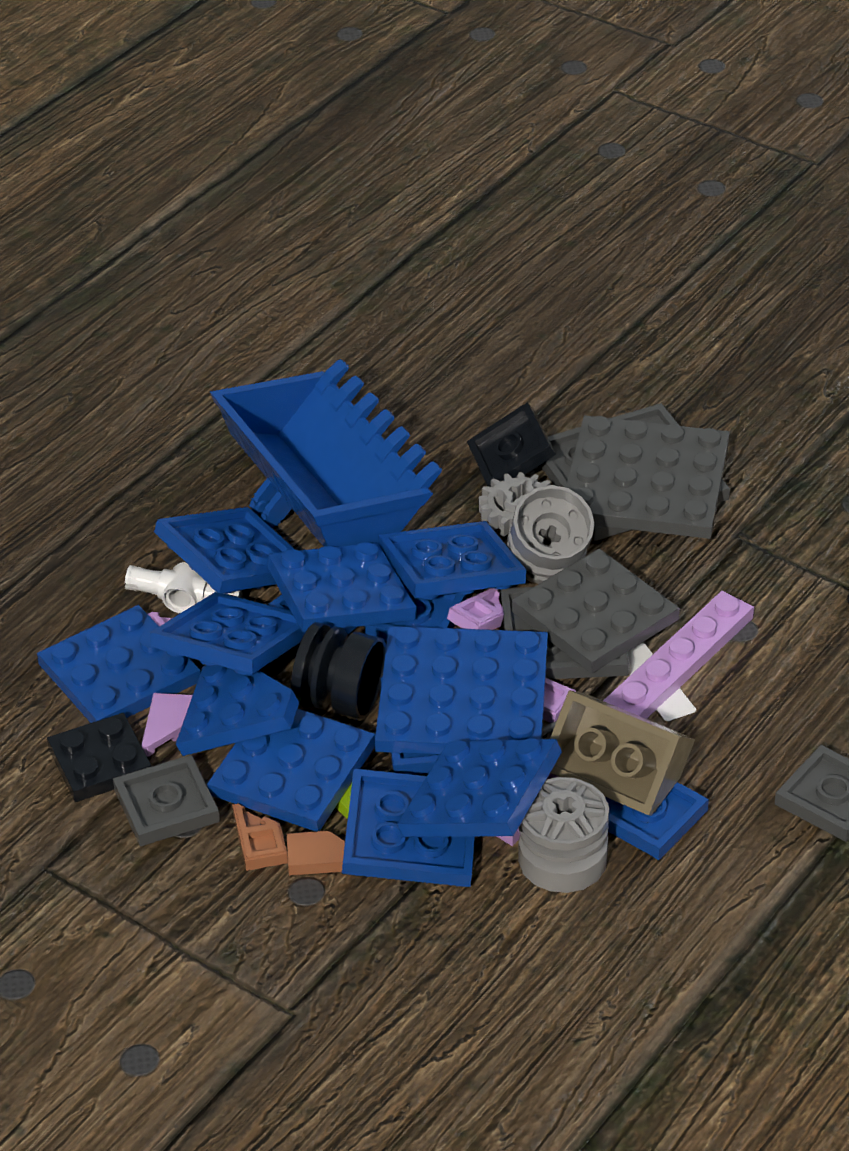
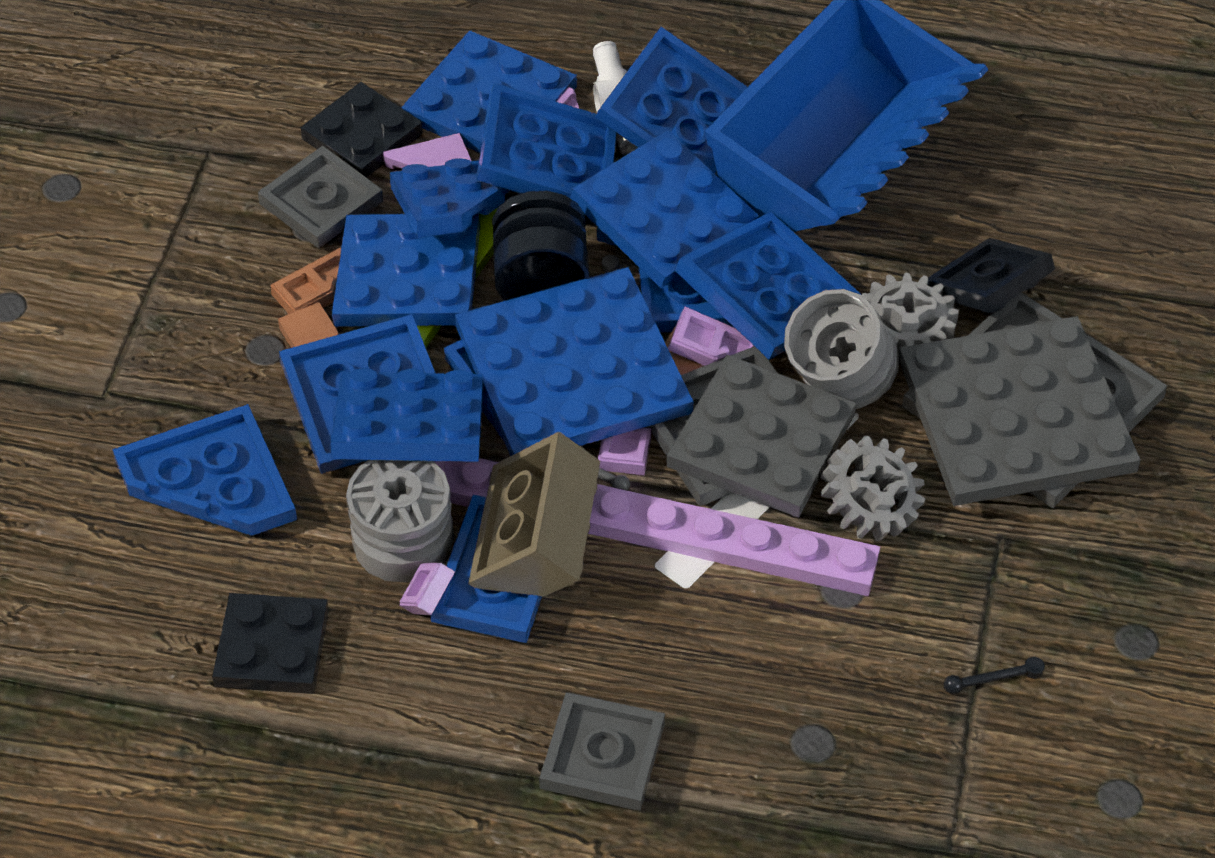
camera: 65 degrees right, 10 degrees up
(435, 952) = (211, 472): none -> blue plate
(630, 964) = (271, 643): none -> black plate
(637, 843) = (426, 588): none -> lavender tile
(674, 572) = (872, 488): none -> light grey gear

